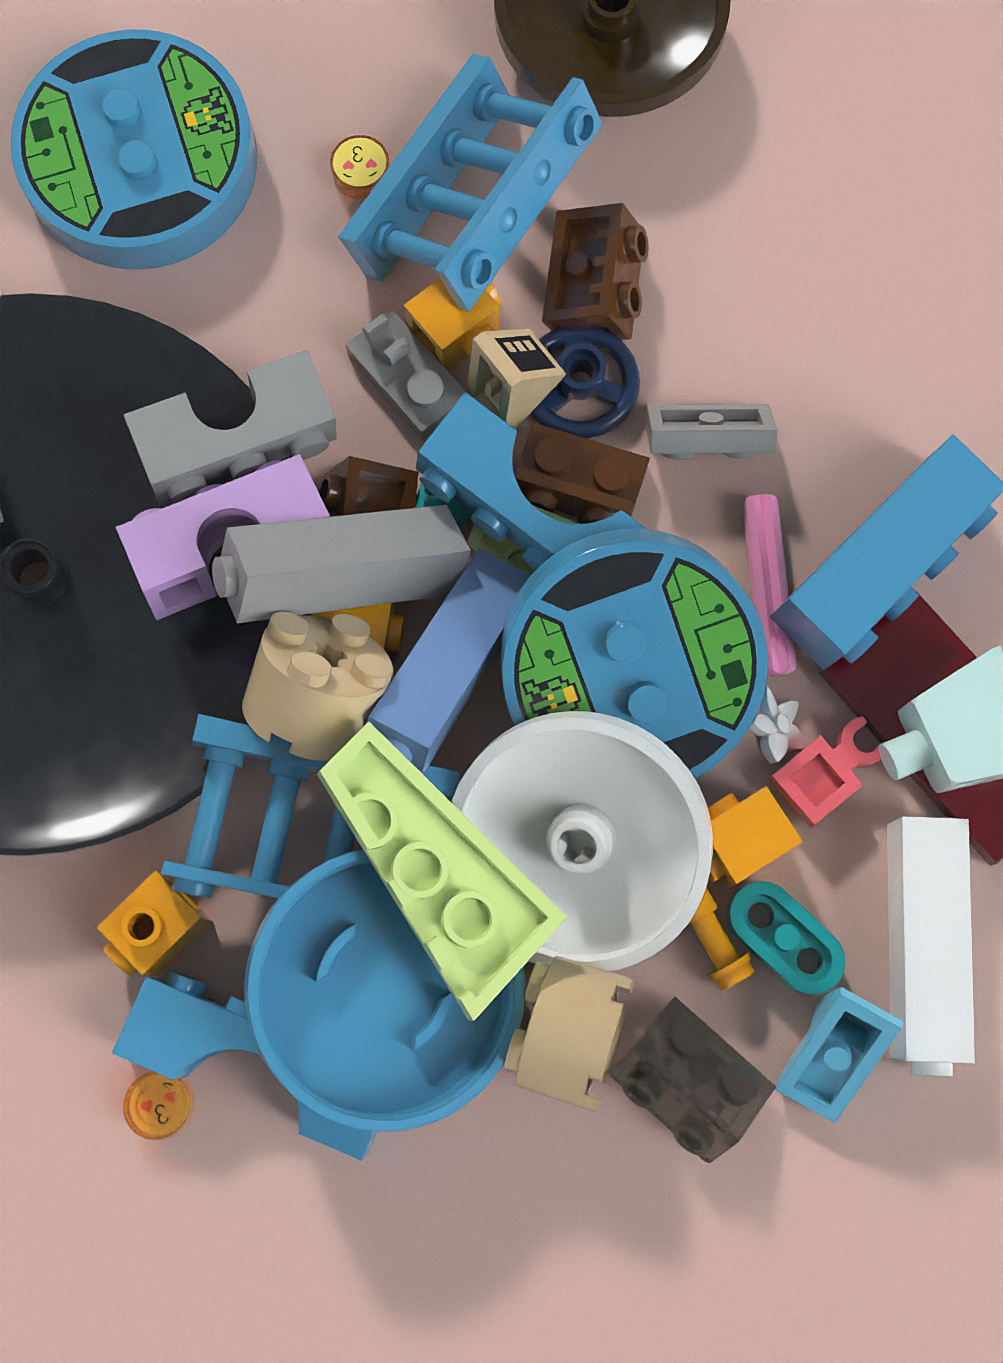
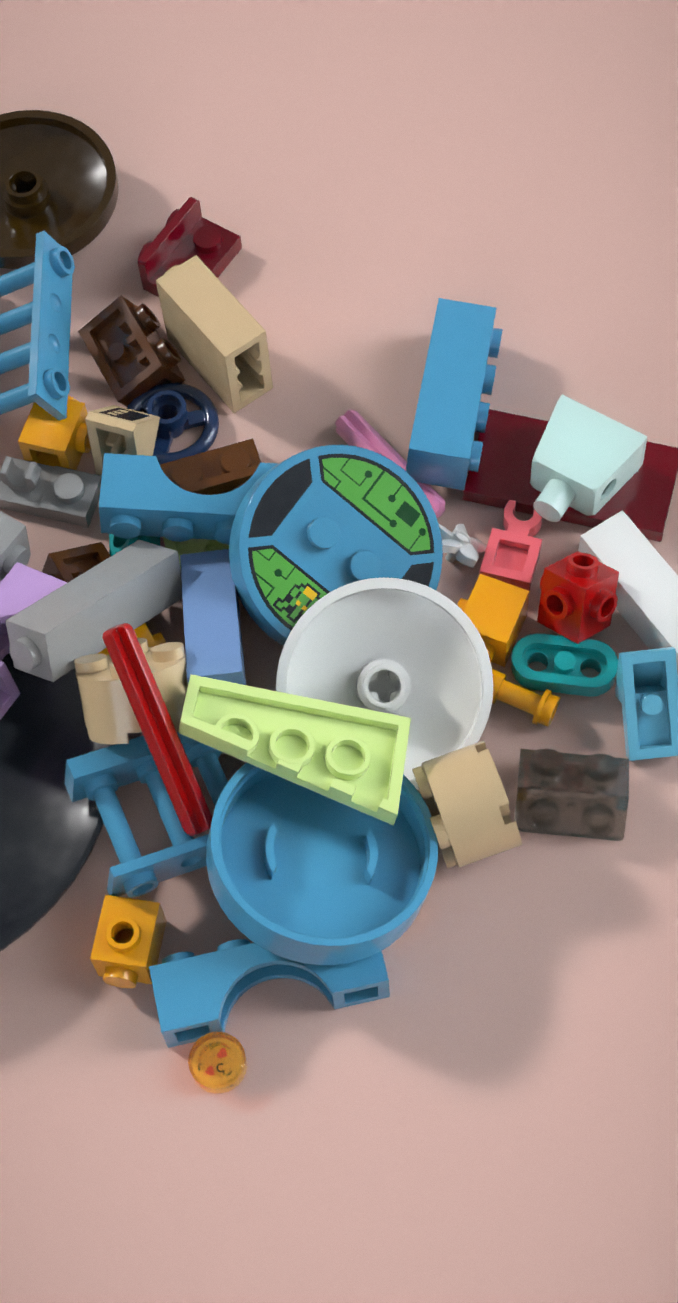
camera: 30 degrees left, 15 degrees down
(298, 752) = (158, 728): none -> red axle
(688, 311) = (215, 333): none -> tan brick
(711, 428) = (296, 388): light grey plate -> none
(729, 195) = (183, 238): none -> dark red bracket
(850, 881) = (577, 596): none -> red brick

